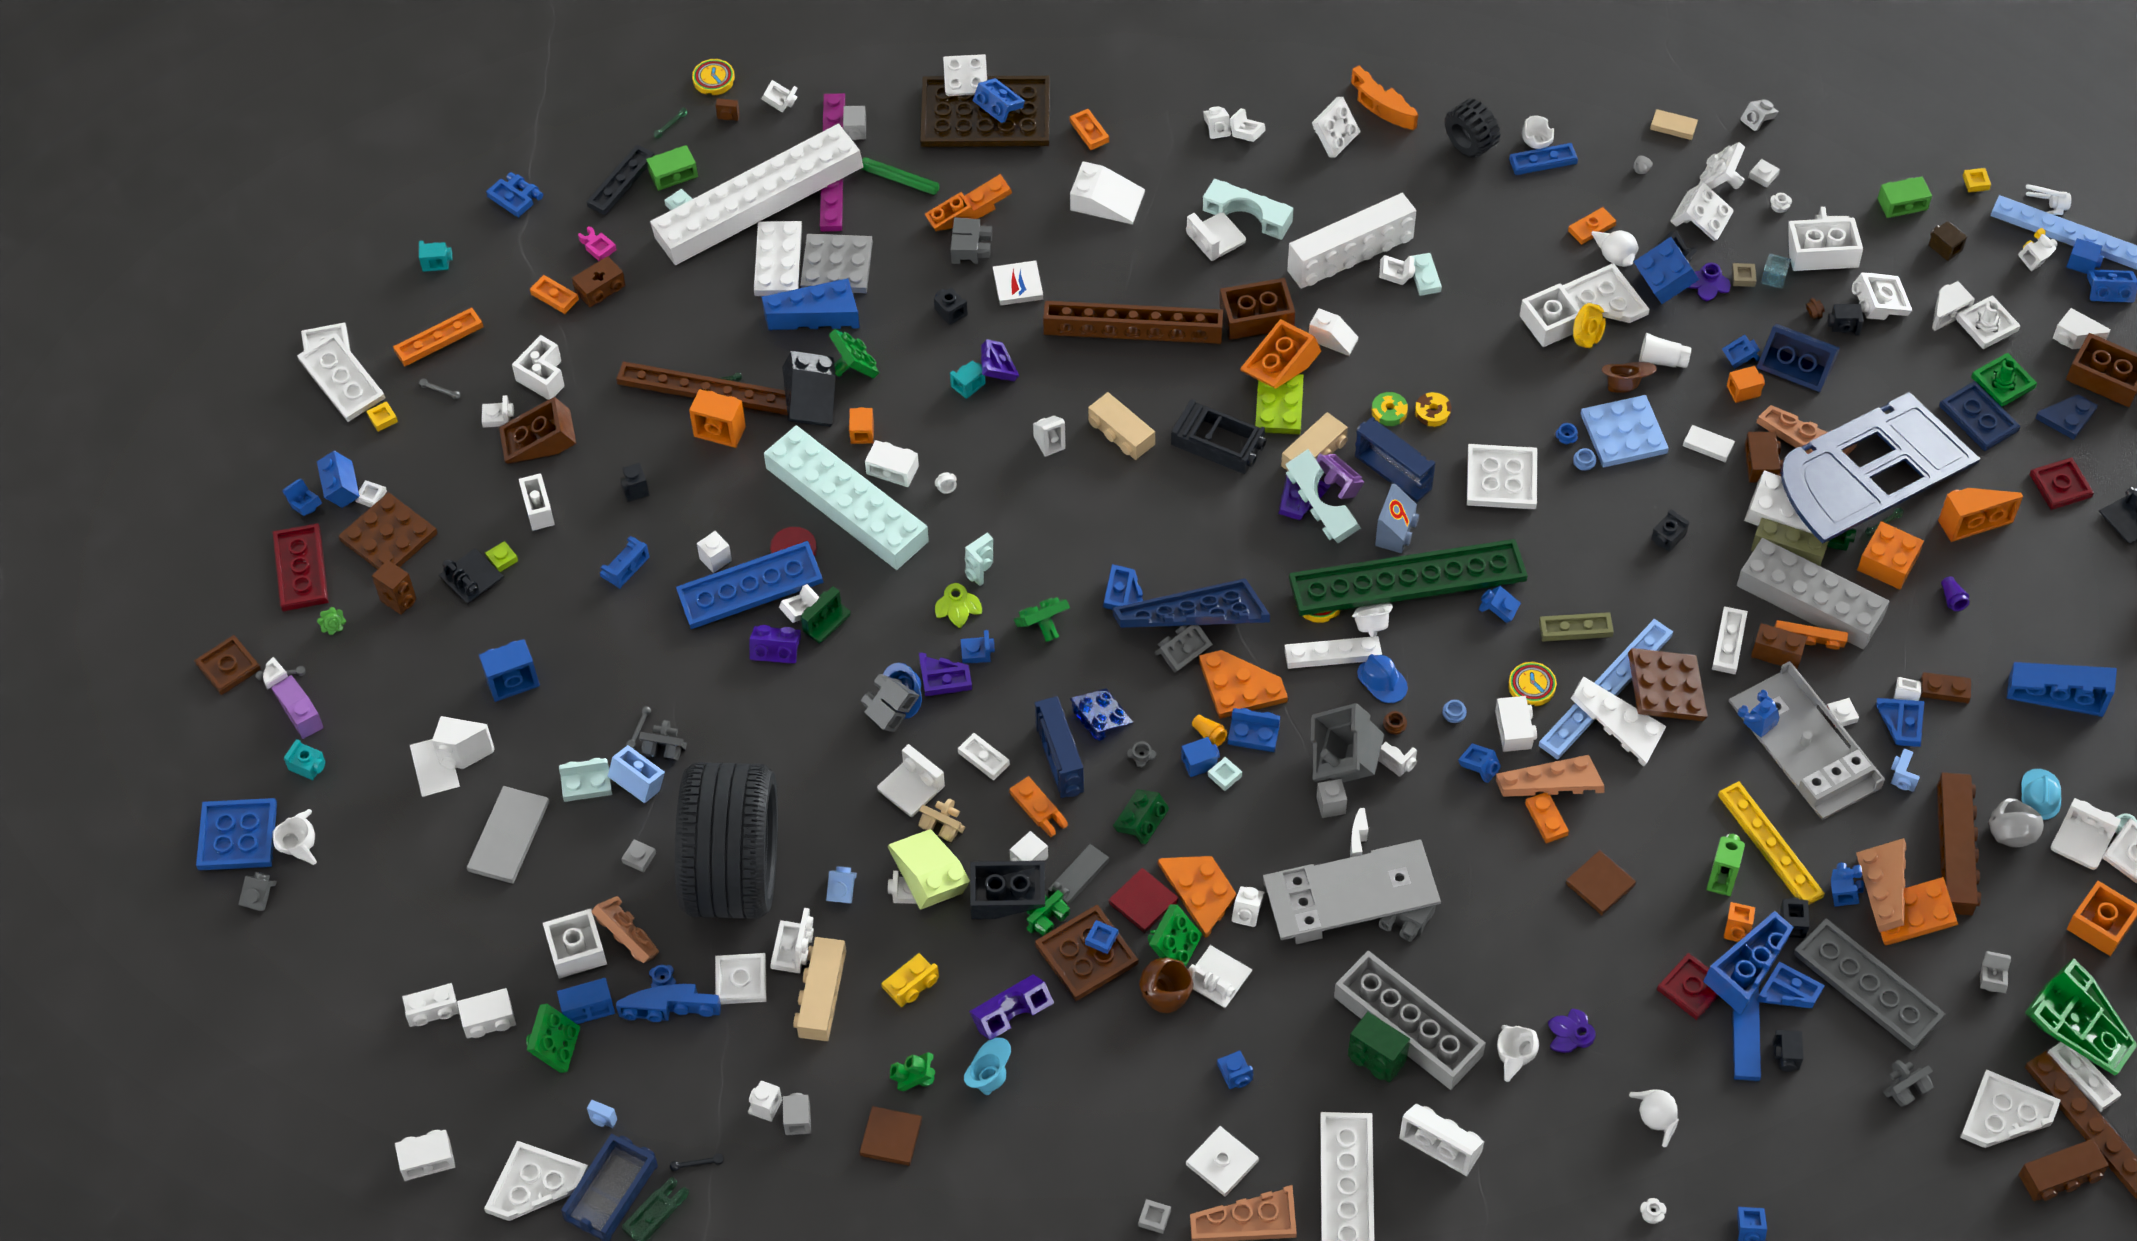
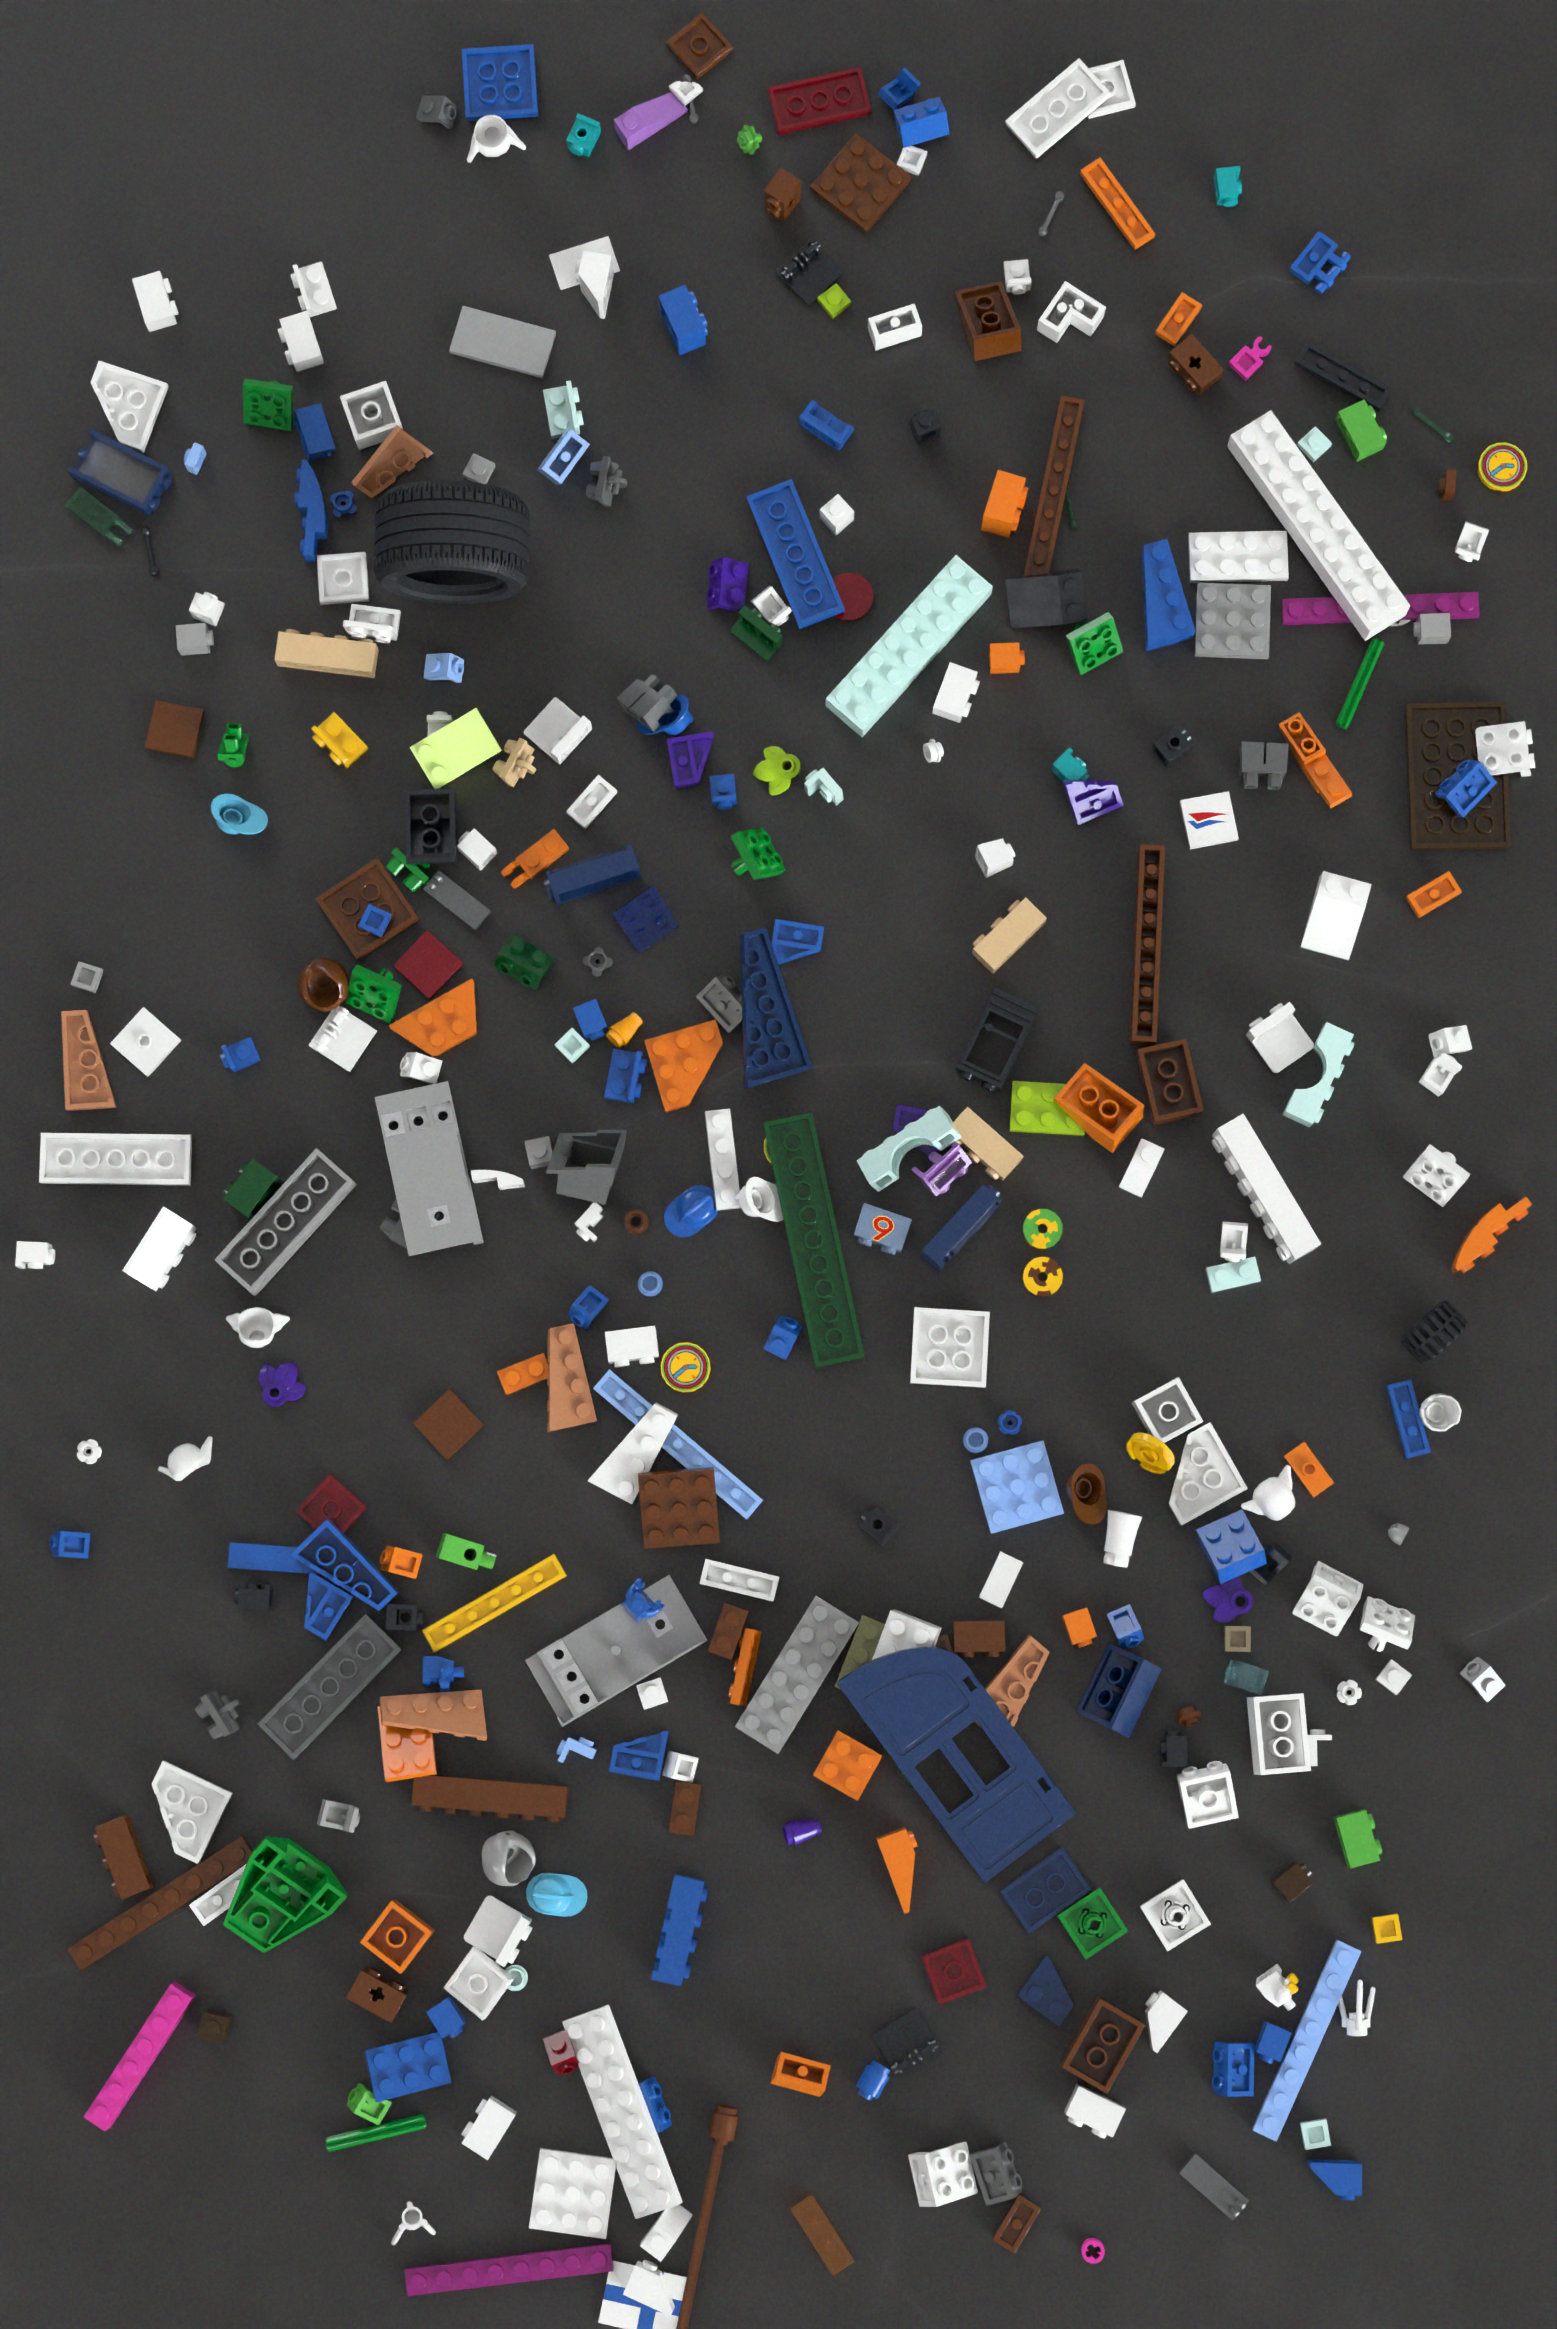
camera: 90 degrees right, 25 degrees up
(382, 416) = (1009, 158): yellow plate -> none
(646, 711) = (647, 463): dark grey hinge -> none
(1024, 997) = (294, 819): dark purple arch -> none
(1576, 626) = (754, 1417): olive plate -> none
(1674, 124) = (1465, 1576): tan tile -> none
(1950, 301) = (1198, 1874): white slope -> none

